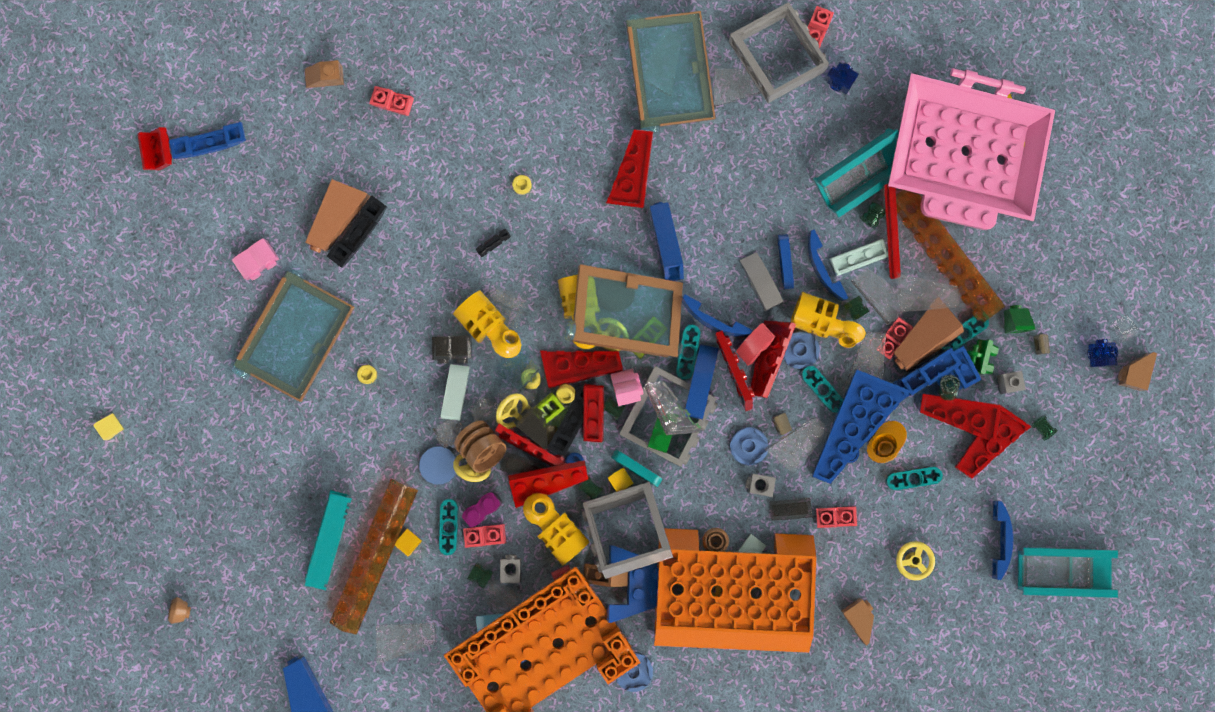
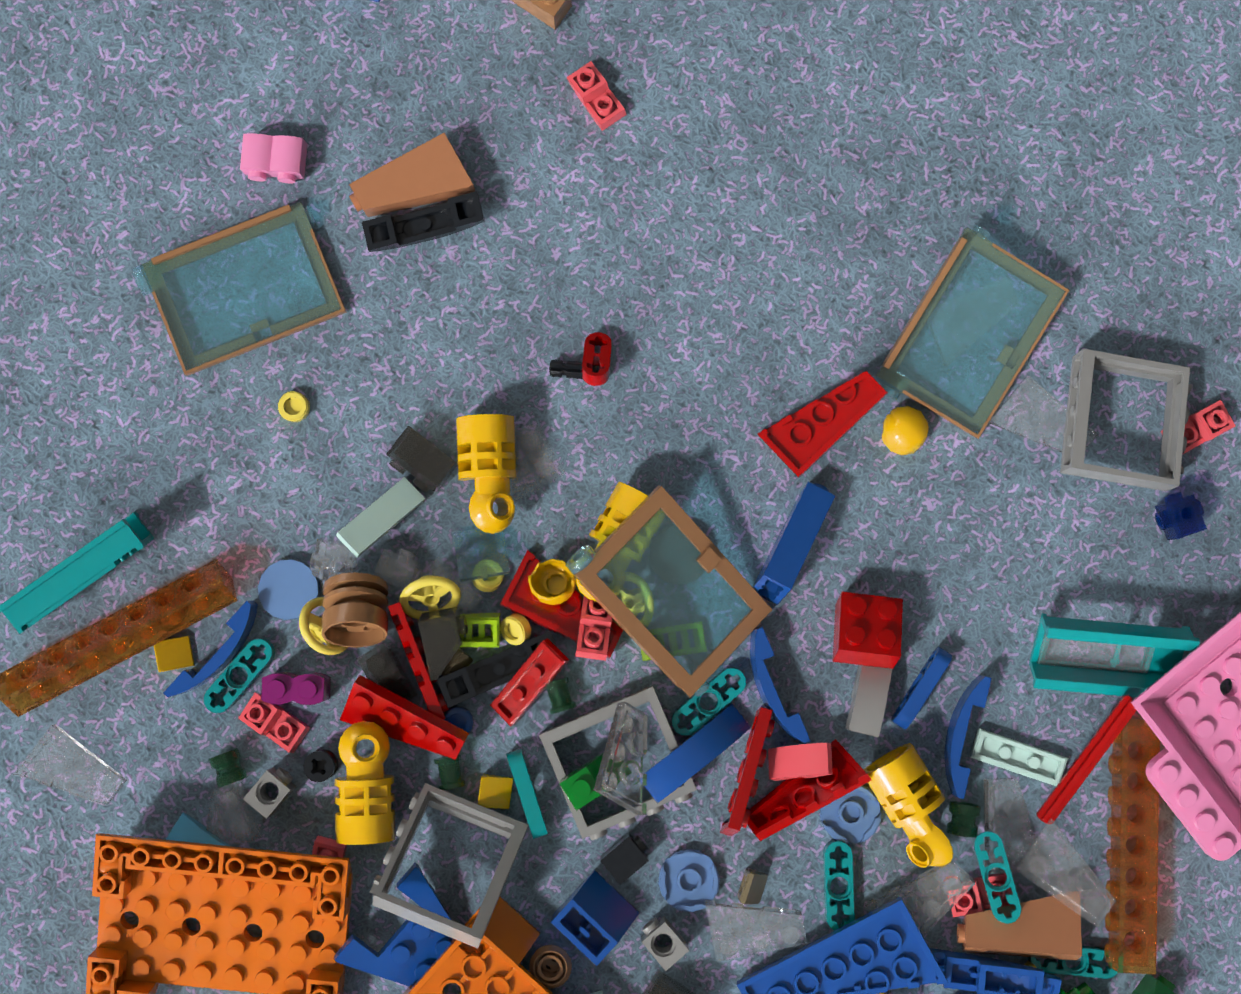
camera: 35 degrees right, 0 degrees up
(428, 499) = (241, 624): none -> blue slope
(494, 231) = (591, 358): none -> red beam
(521, 184) = (672, 327): light yellow tile -> none
(527, 537) = (325, 761): none -> black wheel
(565, 354) = (552, 582): none -> yellow hair
(594, 577) = (362, 884): medium nougat slope -> none
(604, 362) = (593, 631): none -> coral slope
(627, 386) = (595, 685): bright pink brick -> none
(676, 143) = (904, 430): none -> yellow hair
(709, 459) = (625, 857): none -> black brick
(717, 499) = (594, 917): none -> blue slope
(736, 254) = (867, 630): none -> red brick
(873, 215) = (1079, 720): clear green wheel -> none
(878, 317) = (996, 901): none -> teal beam

